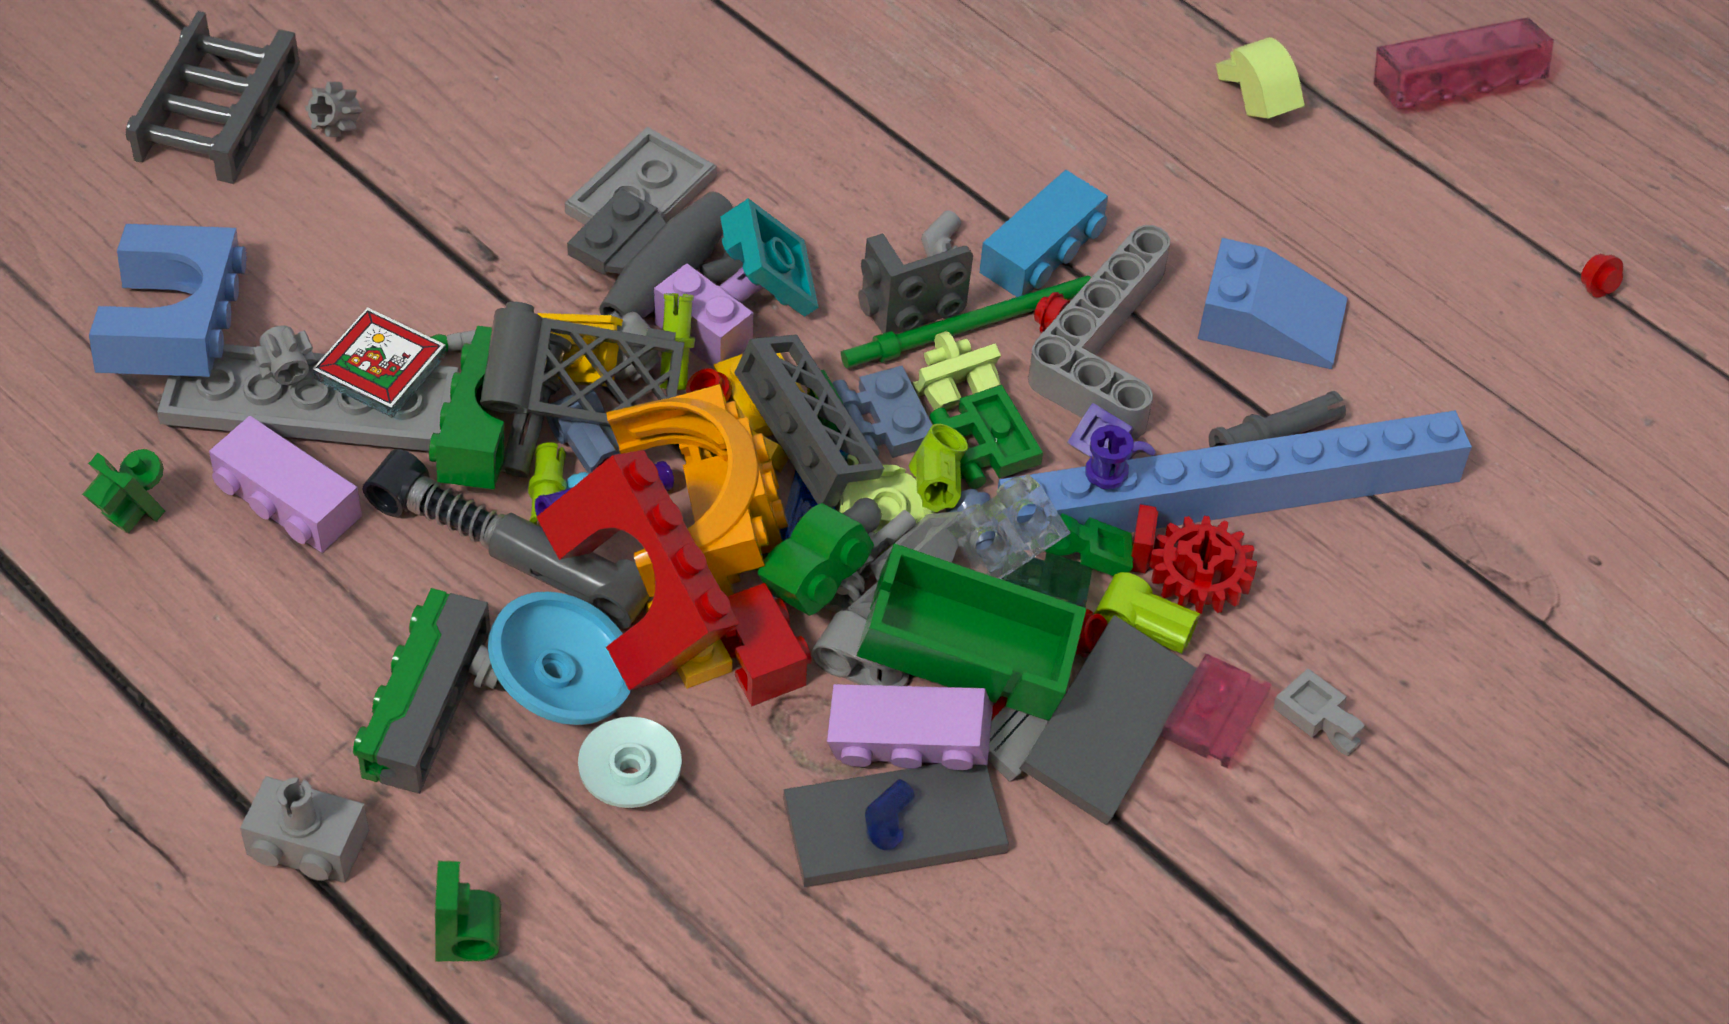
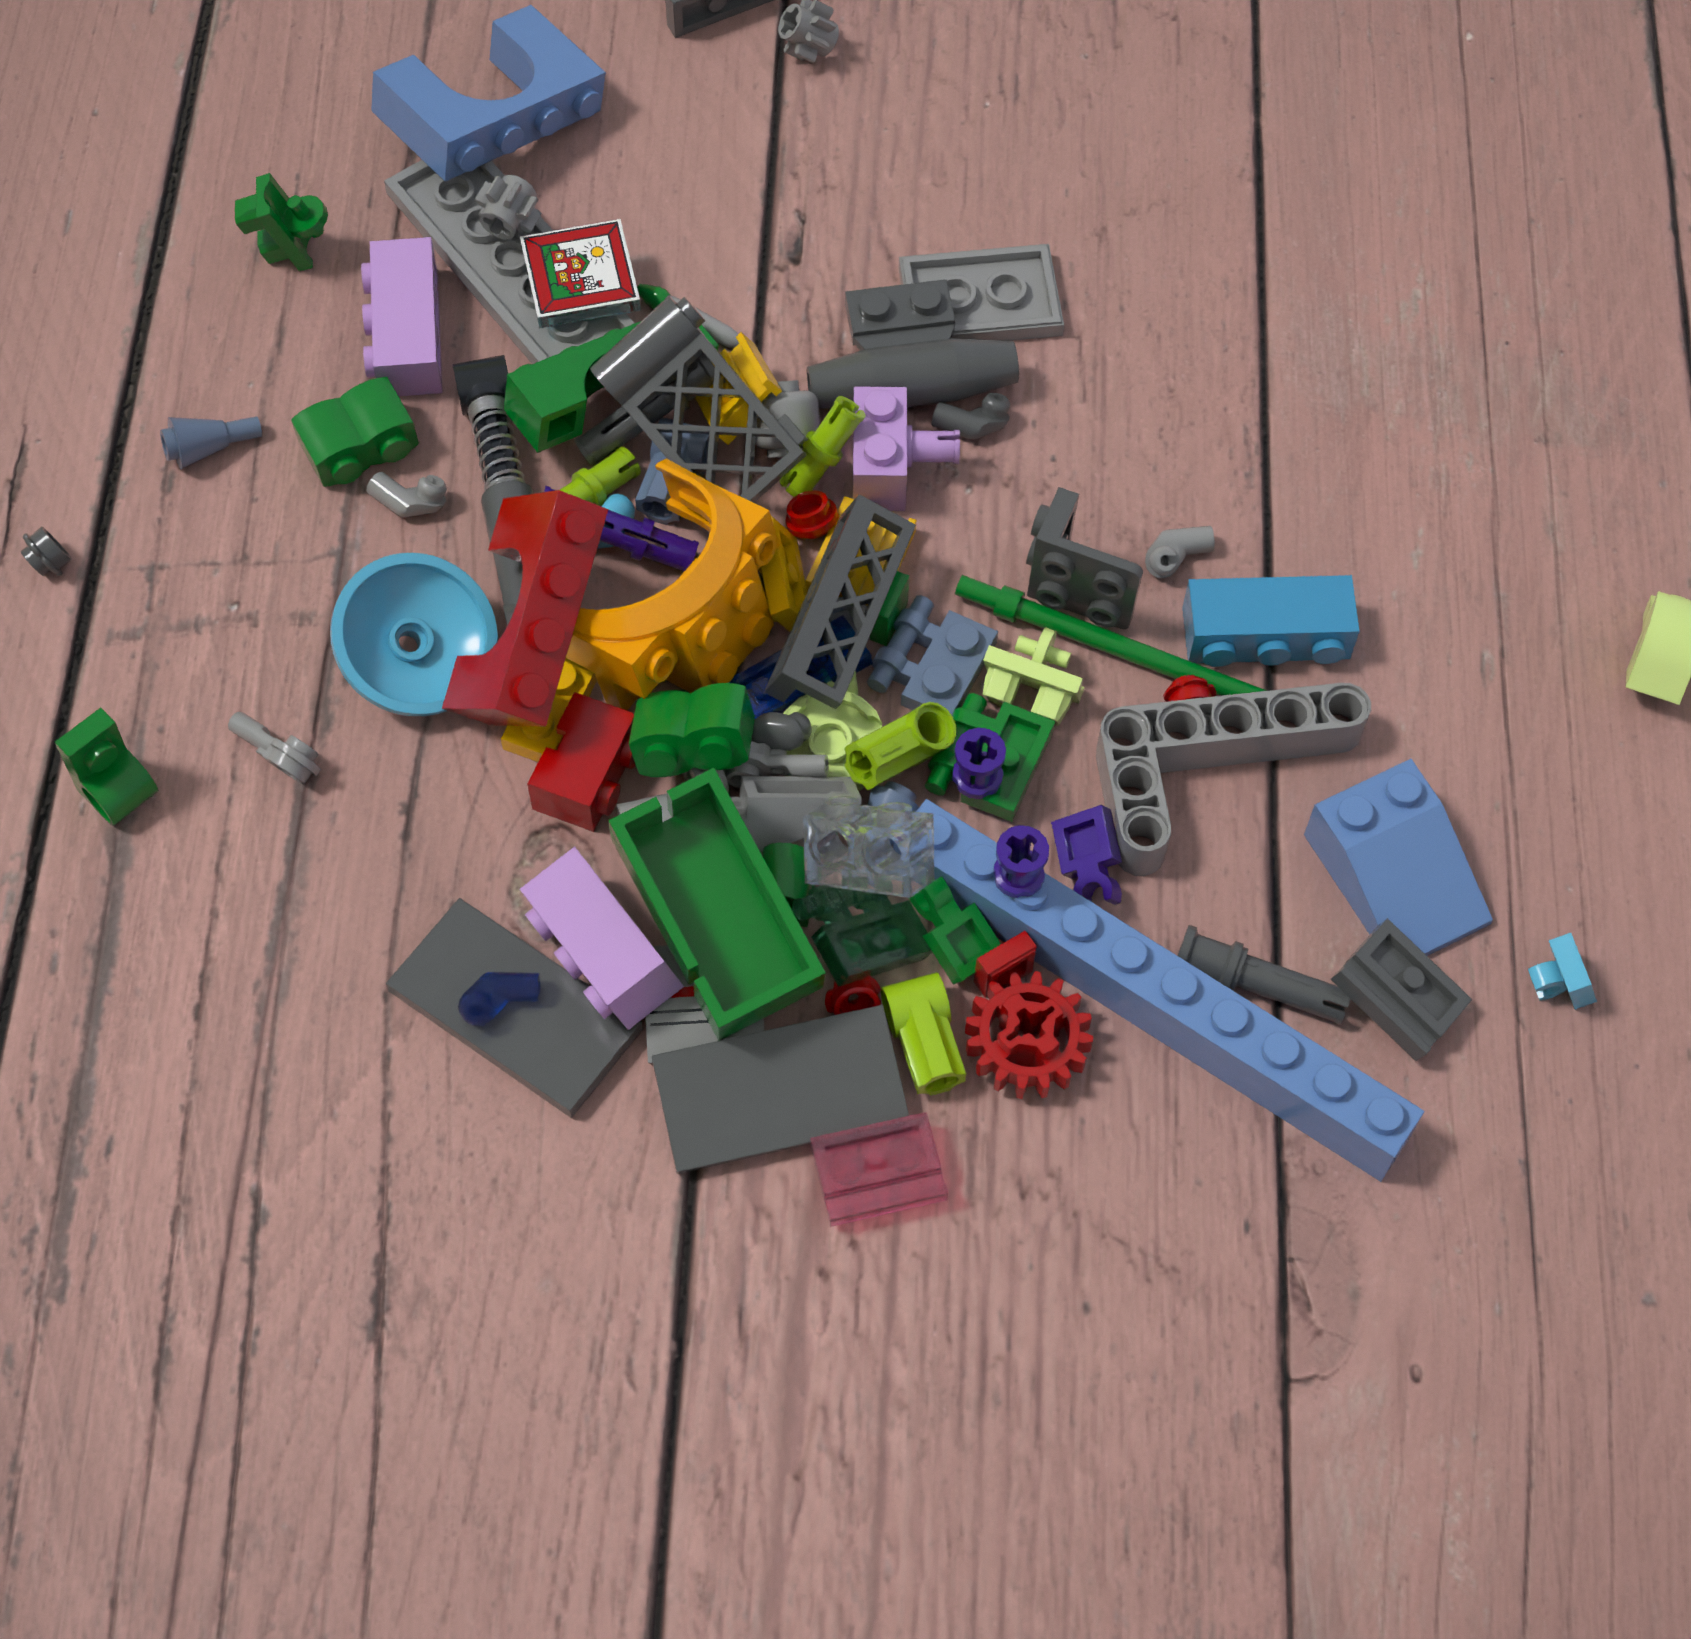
camera: 50 degrees right, 10 degrees up
(218, 834) = (45, 552): none -> dark grey plate
(231, 679) = (194, 439): none -> sand blue cone
(304, 829) = (97, 603): light grey brick -> none
(345, 580) = (355, 431): none -> green brick
(422, 691) = (297, 570): dark grey piece -> none
(443, 578) = (408, 502): none -> light grey arm
(566, 807) = (291, 757): none -> light grey plate
(624, 745) = (369, 746): light aqua dish -> none
(770, 255) = (986, 440): teal plate -> none
(1007, 430) = (969, 752): none -> dark purple bush
(1316, 706) = (966, 1249): light grey plate -> none
(1356, 367) = (1401, 989): none -> dark grey plate
(1420, 289) = (1563, 974): none -> medium azure tile

